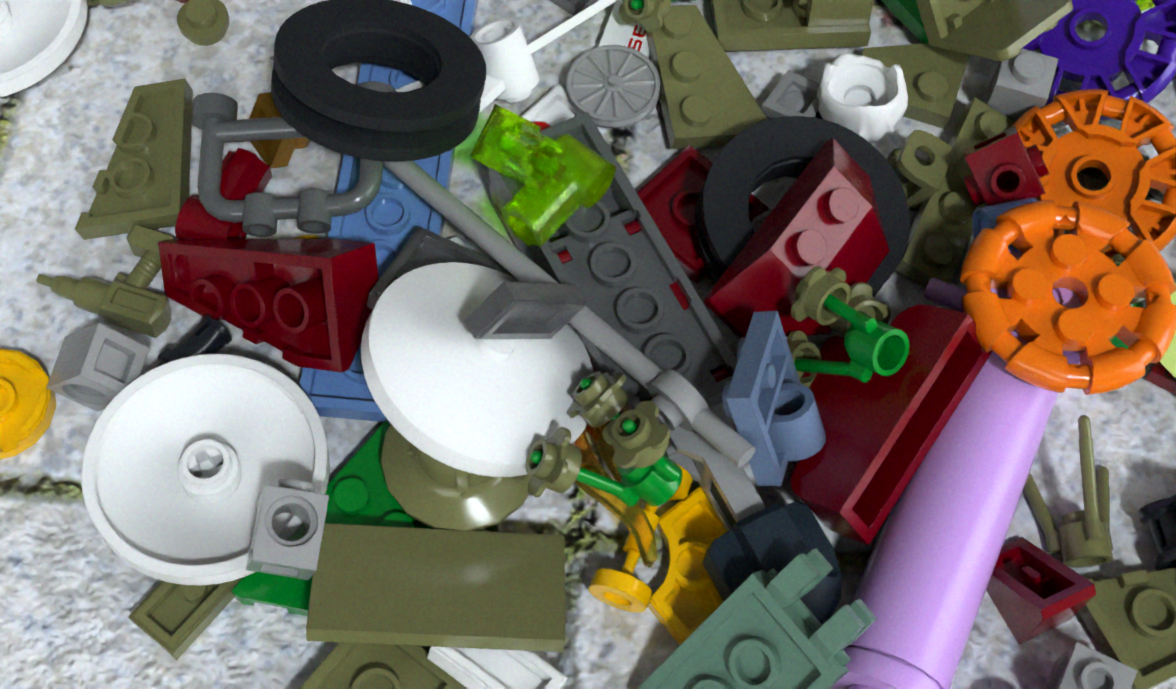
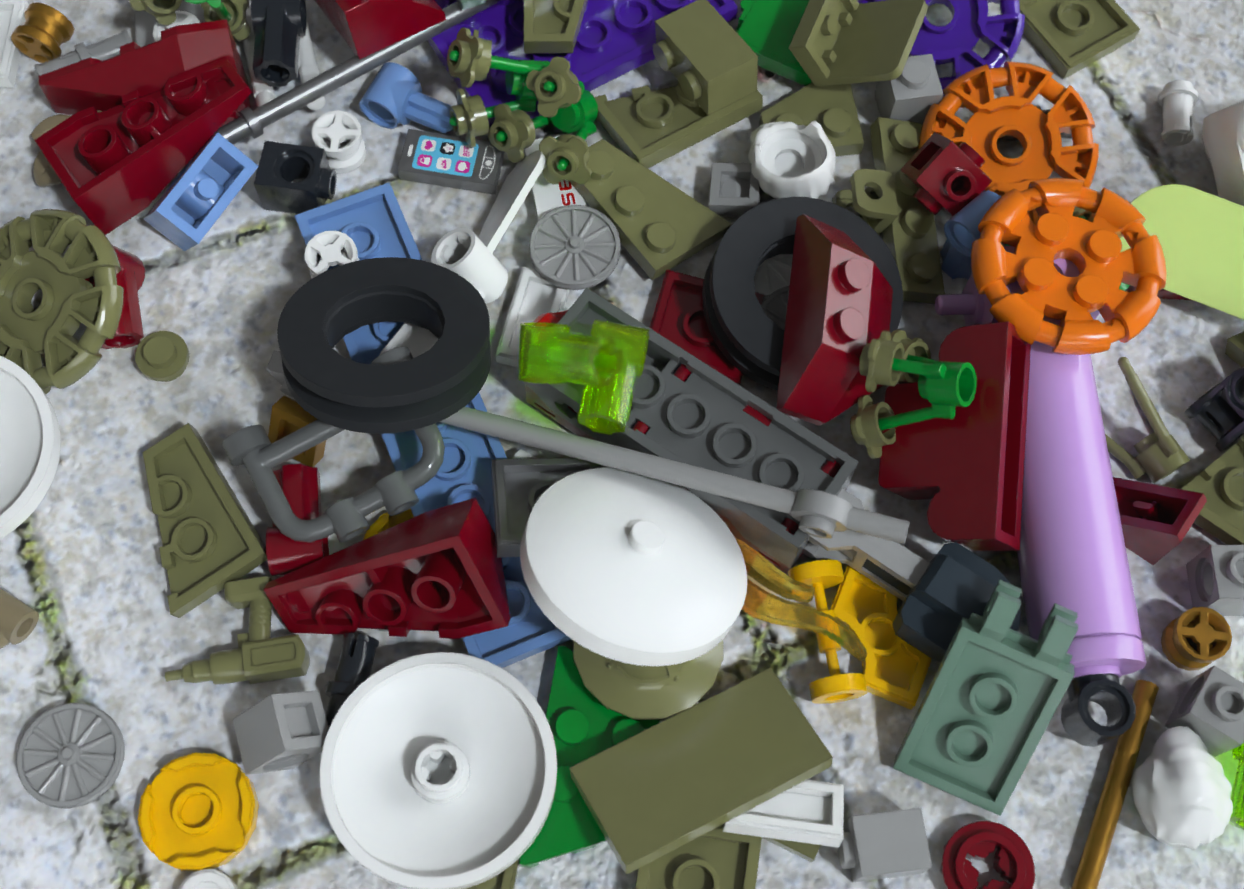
camera: 30 degrees left, 5 degrees up
(281, 557) = (582, 796): light grey brick -> none
(526, 311) = (662, 500): flat silver tile -> none
(635, 436) = (813, 565): olive plant -> none
(770, 402) = (888, 470): sand blue plate -> none

